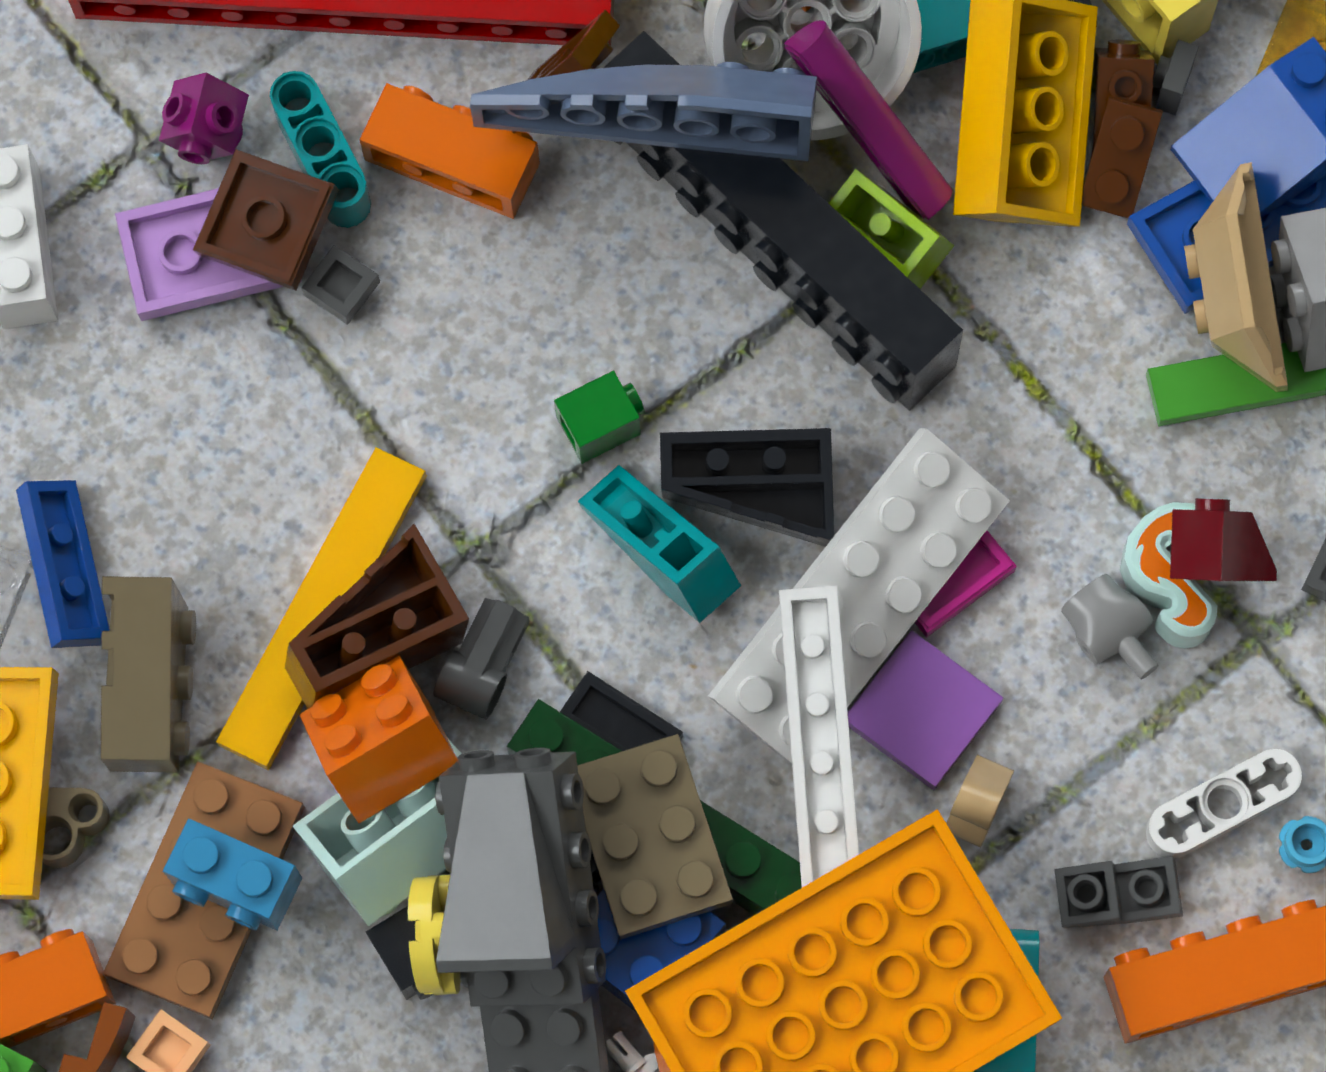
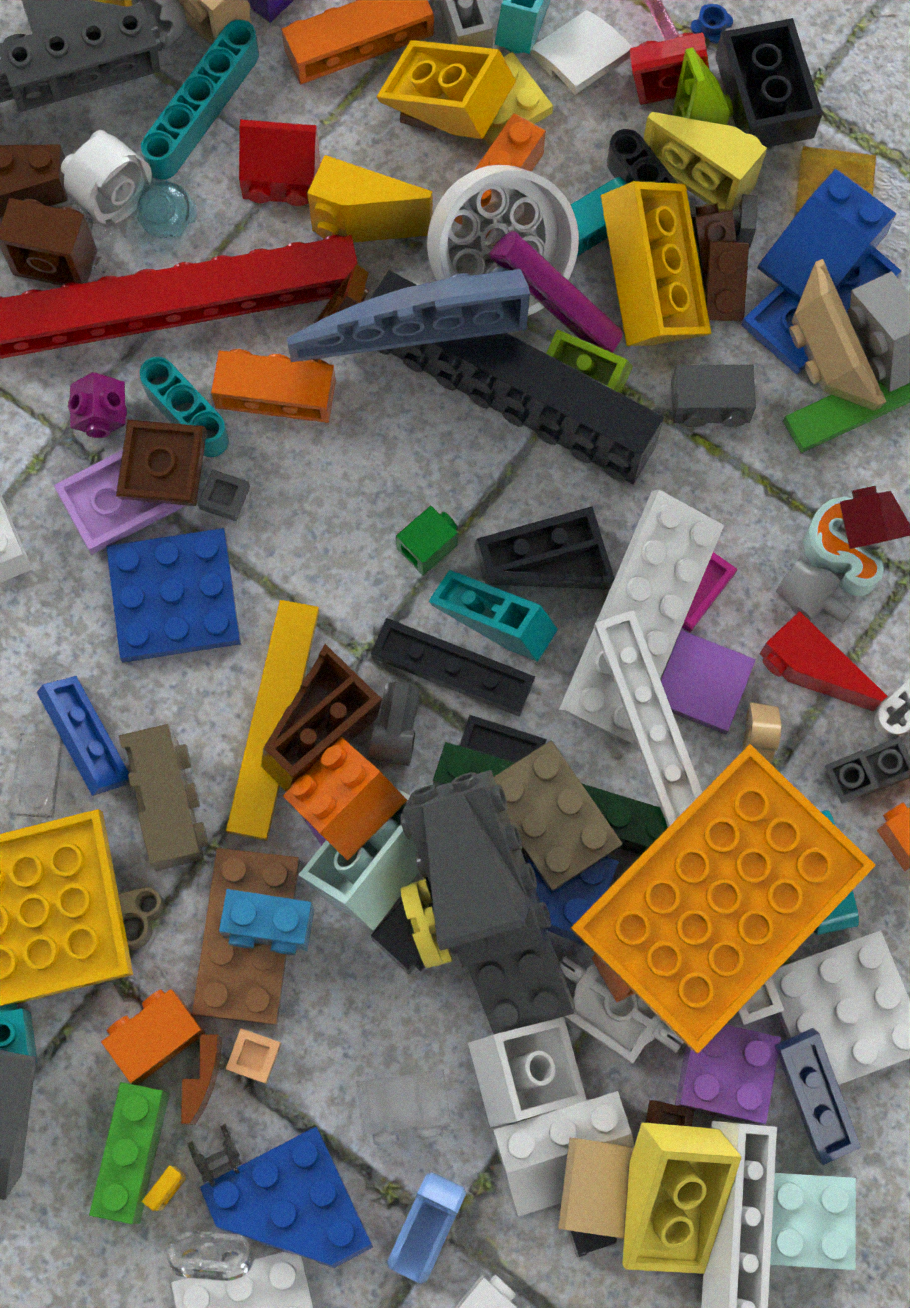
camera: 20 degrees left, 0 degrees up
(235, 404) = (173, 595): none -> blue plate
(583, 600) = (452, 667): none -> black plate
(1054, 313) = (713, 394): none -> dark grey brick
(1082, 723) = (814, 662): none -> red slope

